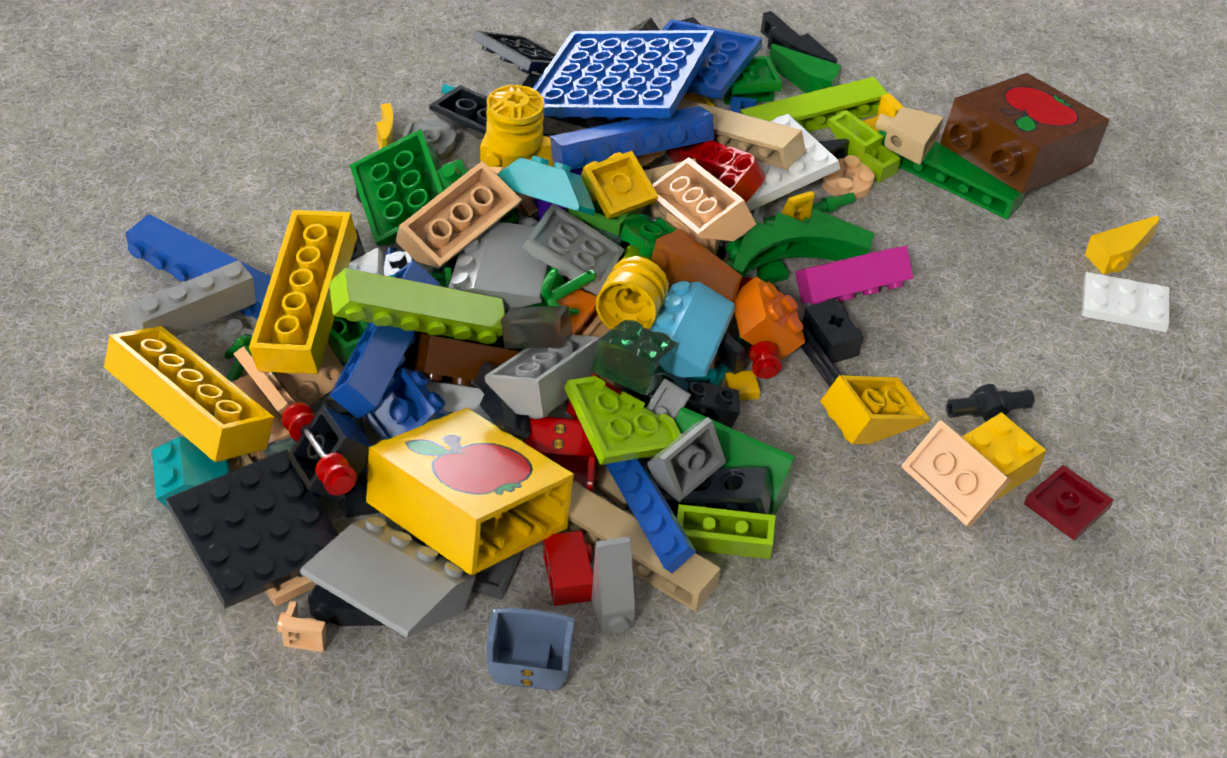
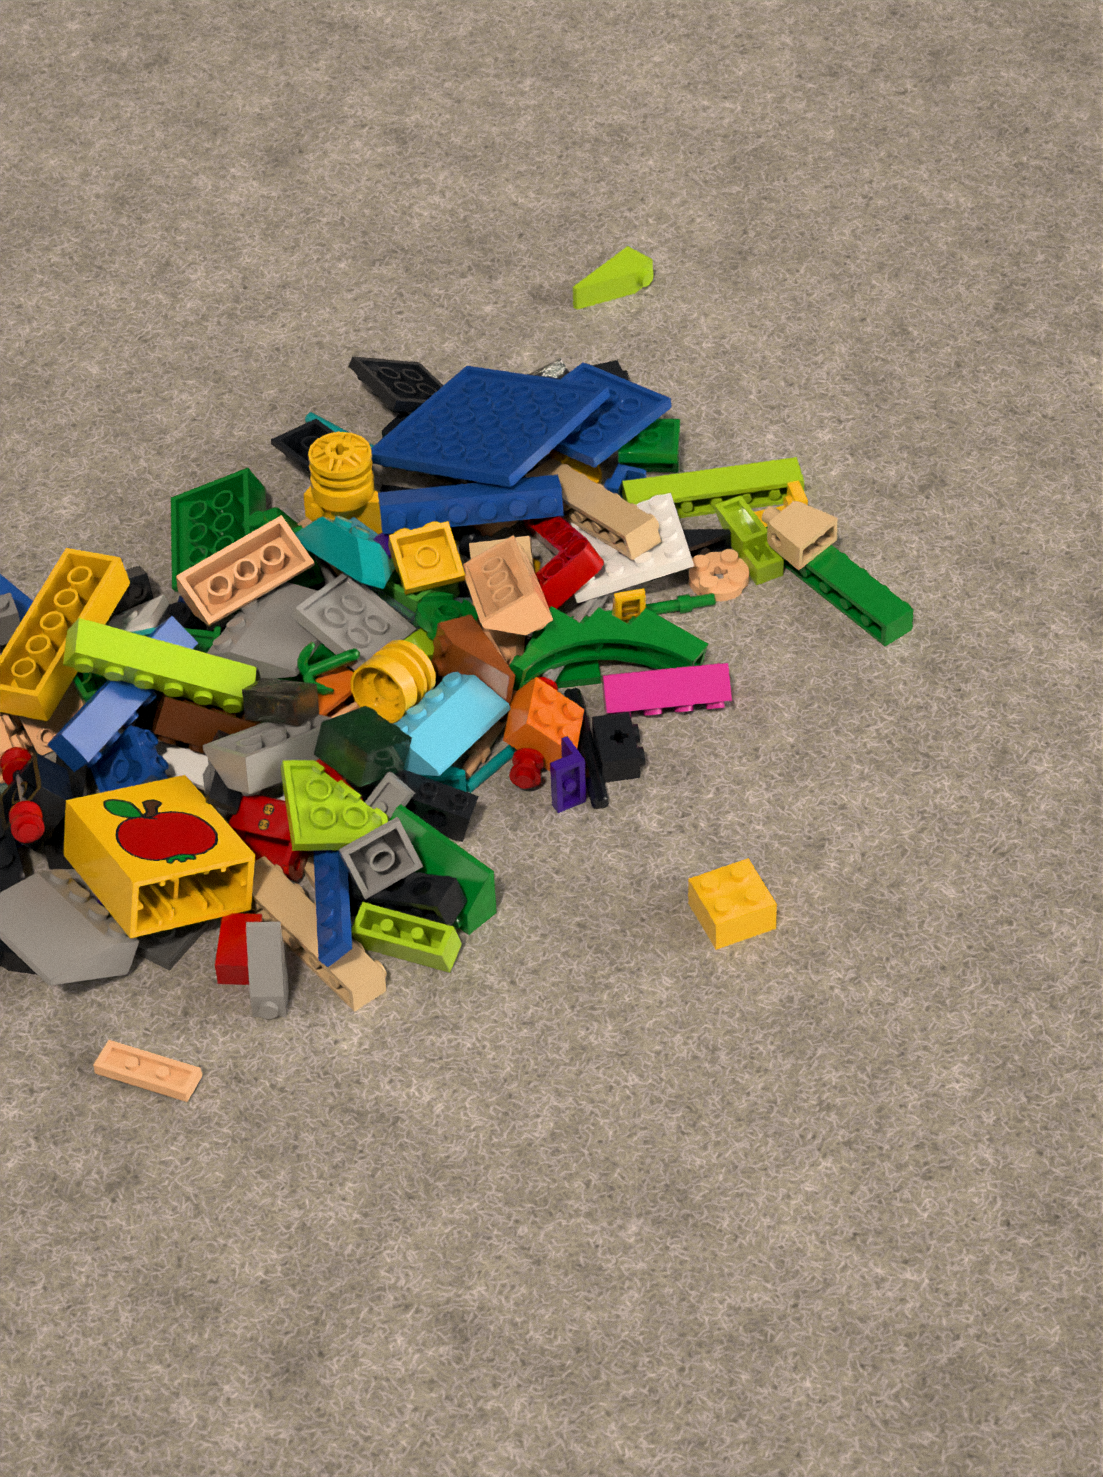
camera: 20 degrees right, 0 degrees up
(385, 127) = (226, 461): yellow slope -> none
(444, 137) = (285, 472): light grey plate -> none
(521, 707) = (147, 1070): none -> light nougat plate
(529, 648) = (167, 1016): sand blue piece -> none
(731, 354) = (490, 756): black tile -> none
(744, 382) = (496, 793): yellow tile -> none
(782, 35) = (729, 411): black slope -> none
(805, 70) = (725, 440): green slope -> none
(809, 360) = (568, 778): none -> dark purple panel
(872, 408) = (623, 834): yellow slope -> none
(955, 473) = (672, 914): light nougat plate -> none
(989, 402) = (755, 845): black pin -> none
(1024, 132) = (932, 546): reddish brown brick -> none
(1068, 502) = (787, 962): dark red plate -> none
(1119, 246) = (995, 693): yellow slope -> none
(1125, 301) = (971, 758): white plate -> none

